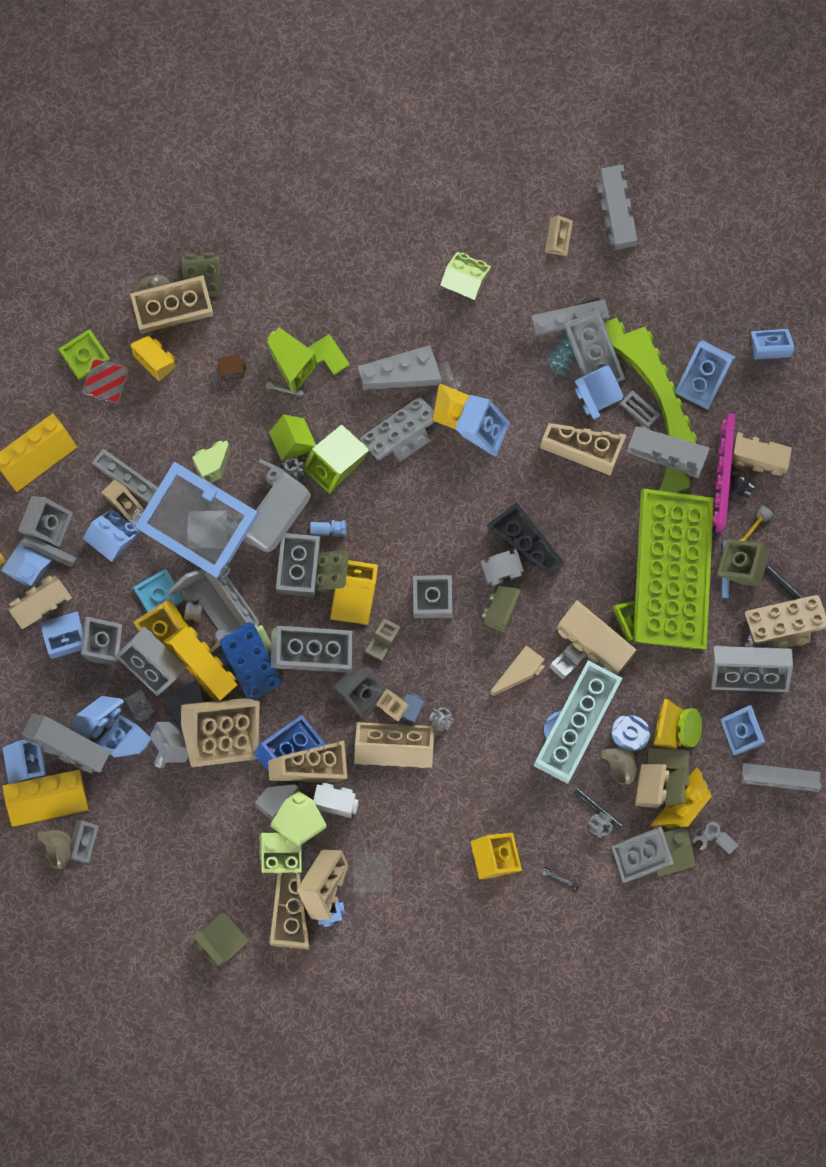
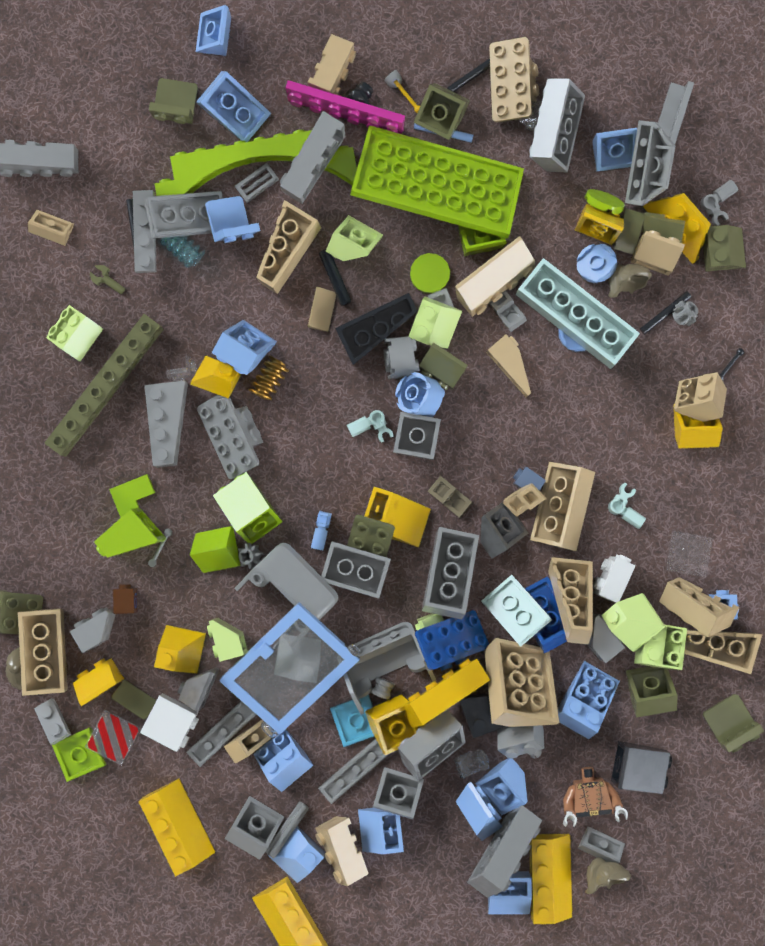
camera: 75 degrees left, 10 degrees up
(110, 326) = (52, 721): none -> light grey plate
(111, 600) = (352, 771): none -> light grey tile
(126, 820) = (591, 798): none -> nougat torso
(127, 428) = (170, 722): none -> white brick
(142, 394) = (134, 699): none -> olive slope
(162, 446) = (197, 688): none -> flat silver slope
(162, 861) = (640, 768): none -> slope
(194, 424) = (180, 650): none -> yellow slope
(198, 345) = (94, 631): none -> light grey slope
(216, 801) = (587, 700): none -> light blue slope
(236, 859) = (651, 691): none -> olive slope
(288, 717) = (516, 610): none -> light aqua tile
(404, 797) = (618, 504): none -> light aqua bar
(423, 311) = (104, 385): none -> olive brick
(441, 719) = (546, 453): light grey gear -> none
(442, 558) = (363, 424): none -> light aqua bar
(459, 455) = (269, 378): none -> pearl gold piece
(470, 590) = (419, 395): none -> light blue brick
(521, 294) = (106, 279): none -> olive bar
(522, 852) = (701, 397): none -> tan slope
(534, 490) = (322, 309): none -> tan slope
(541, 593) = (435, 323): none -> yellowish green slope
(564, 596) = (442, 296): none -> light grey plate
(566, 496) = (335, 278): none -> black axle
(588, 582) = (430, 273): none -> lime tile
(604, 505) = (352, 240): none -> yellowish green slope
(642, 854) = (727, 276): light grey tile -> none
(698, 321) = (174, 101): none -> olive bracket
(732, 759) = (650, 164): none -> light grey wedge

